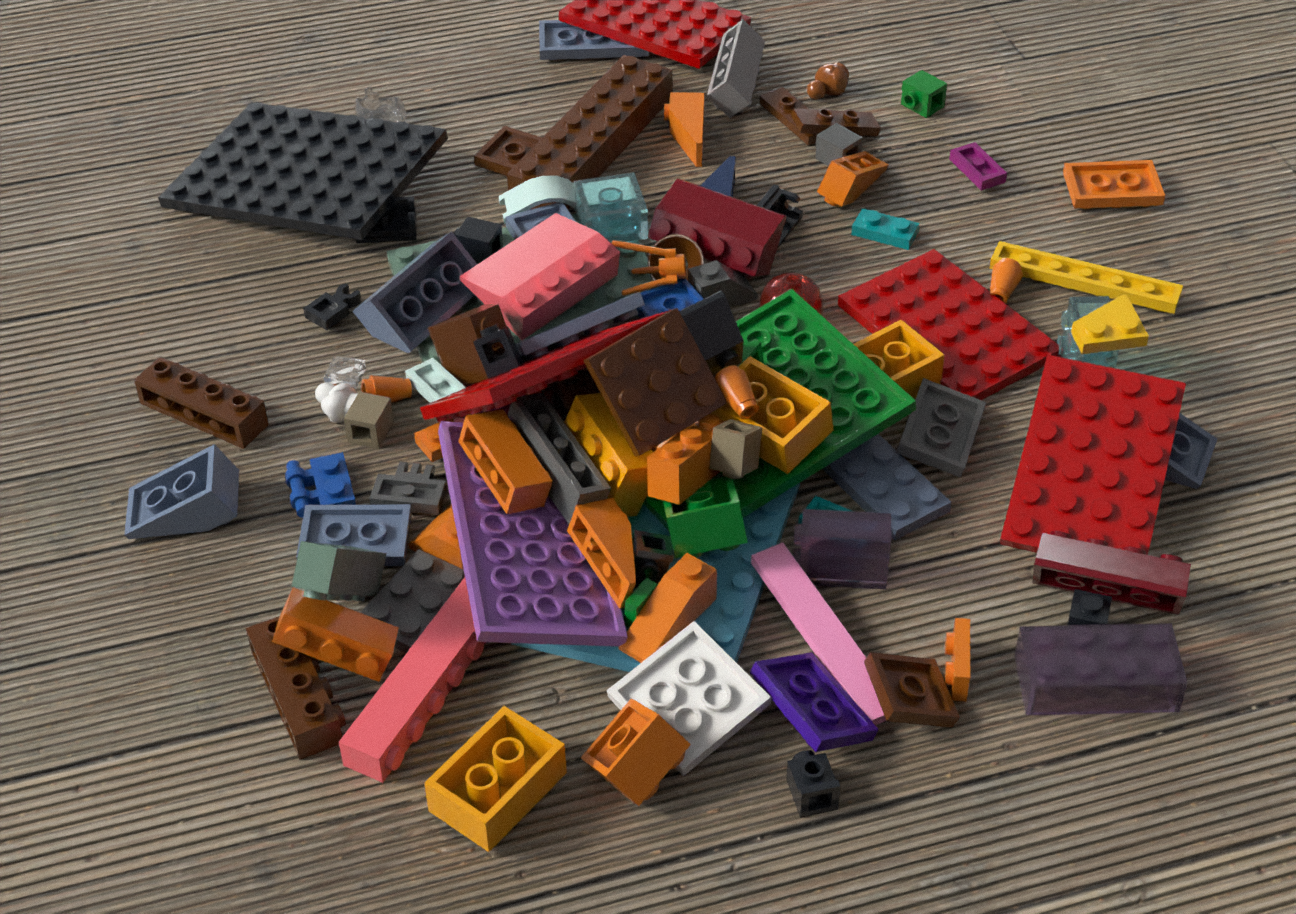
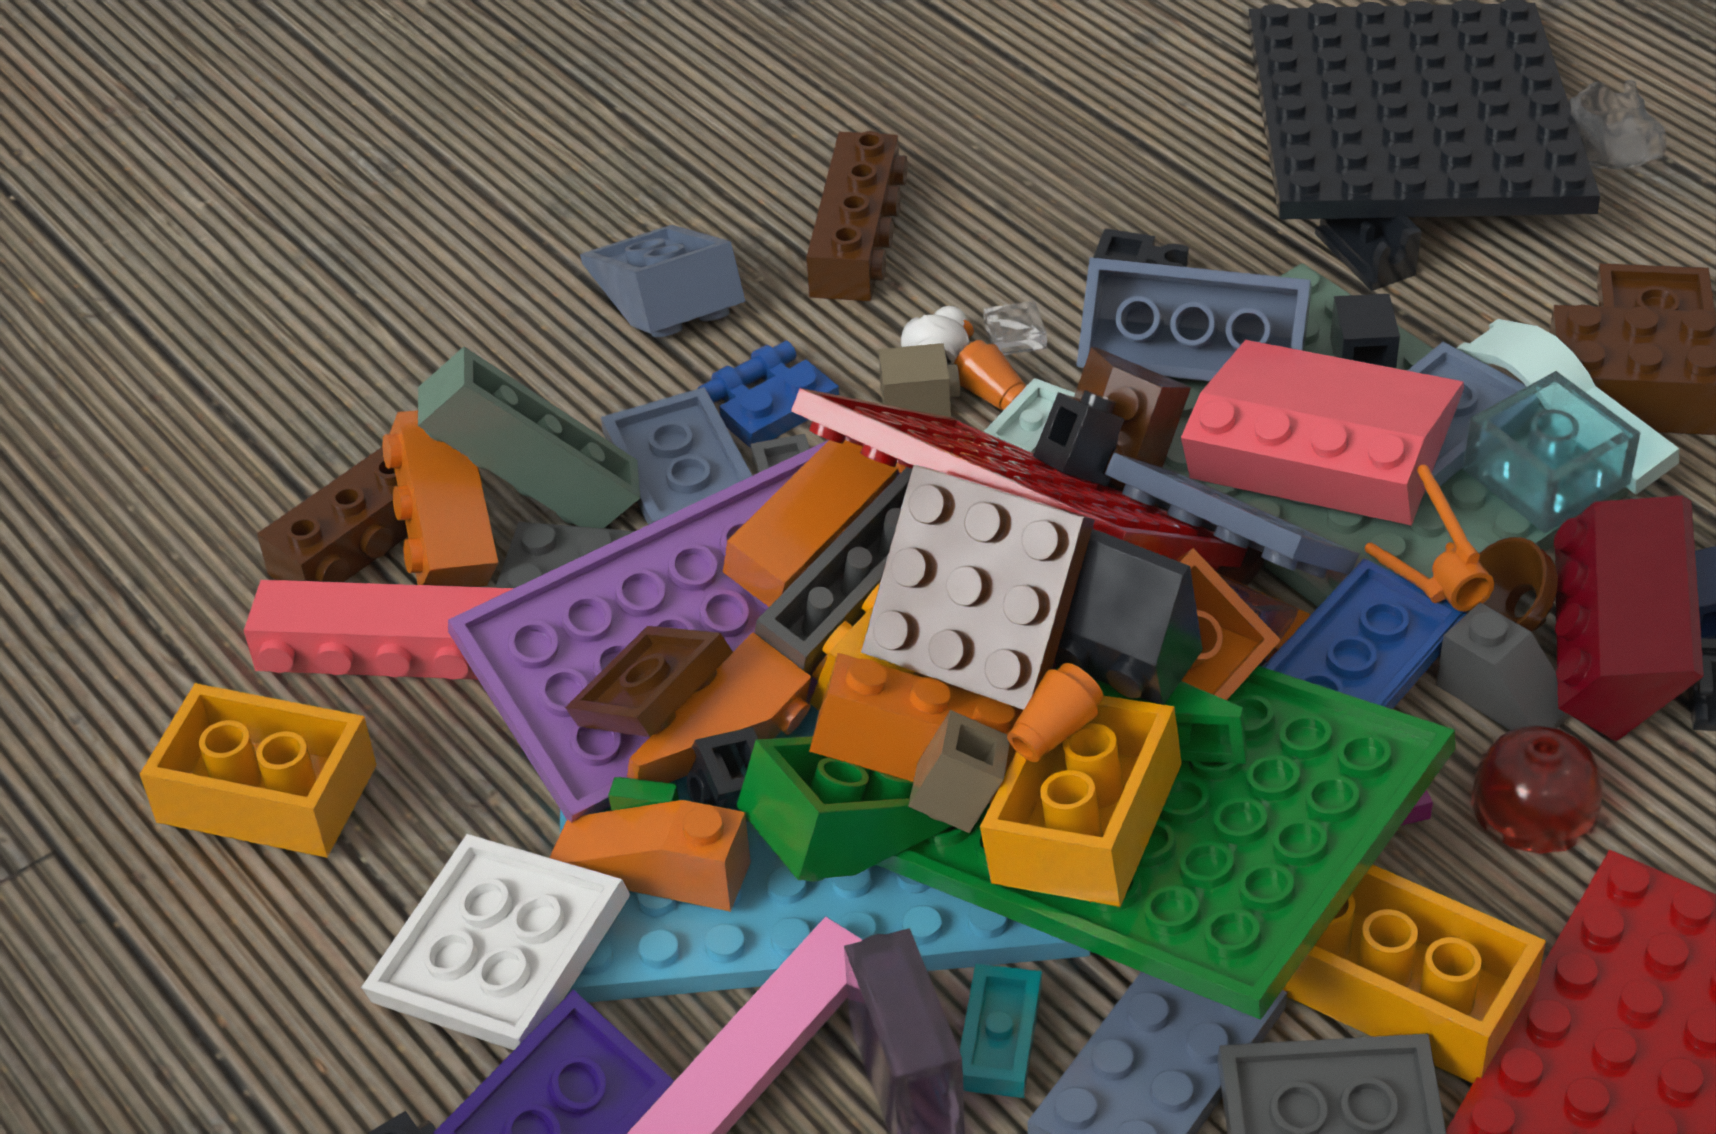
camera: 70 degrees right, 0 degrees up
(582, 557) = (650, 681): none -> reddish brown plate
(636, 751) = (351, 911): orange slope -> none

